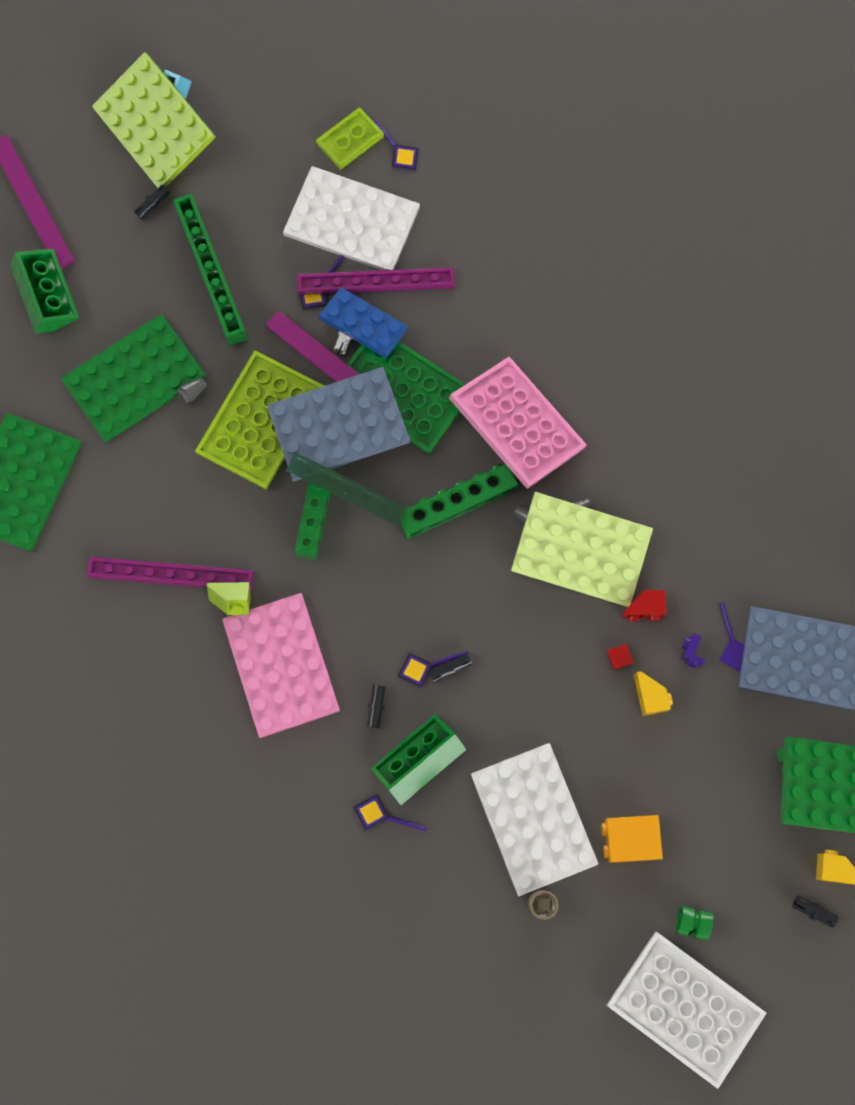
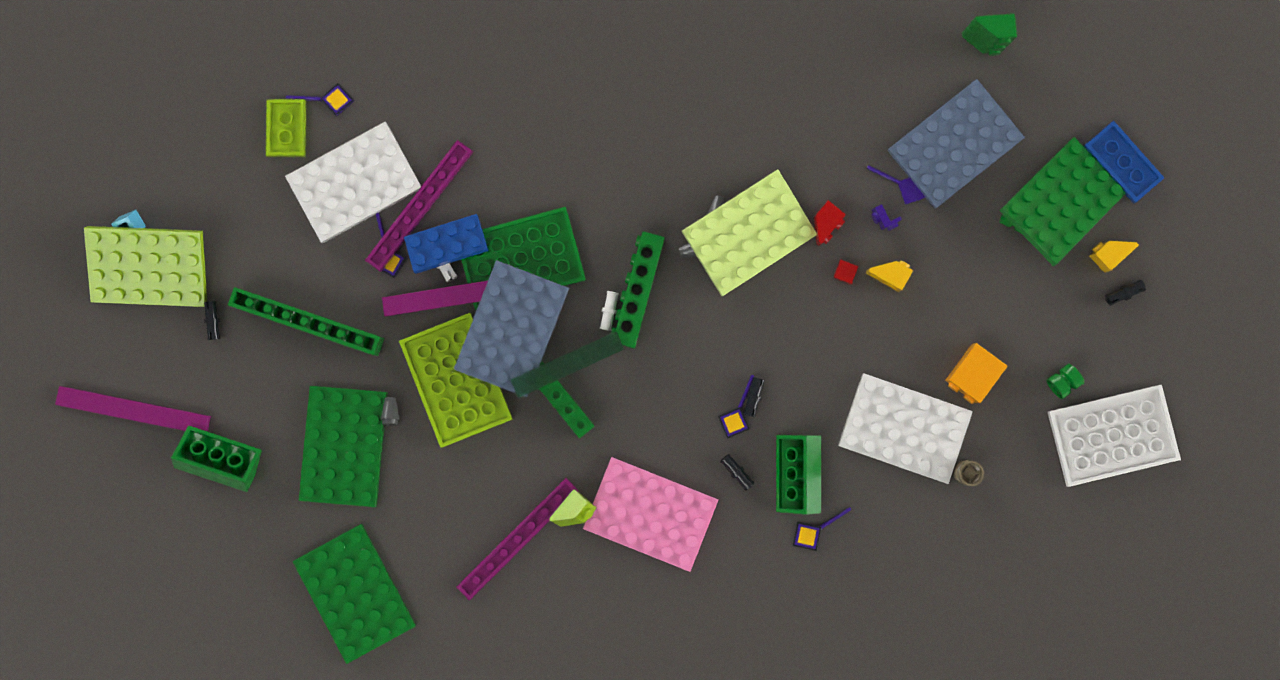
camera: 45 degrees left, 10 degrees up
(420, 492) = (609, 310): none -> white pin
(517, 422) = (617, 196): bright pink plate -> none

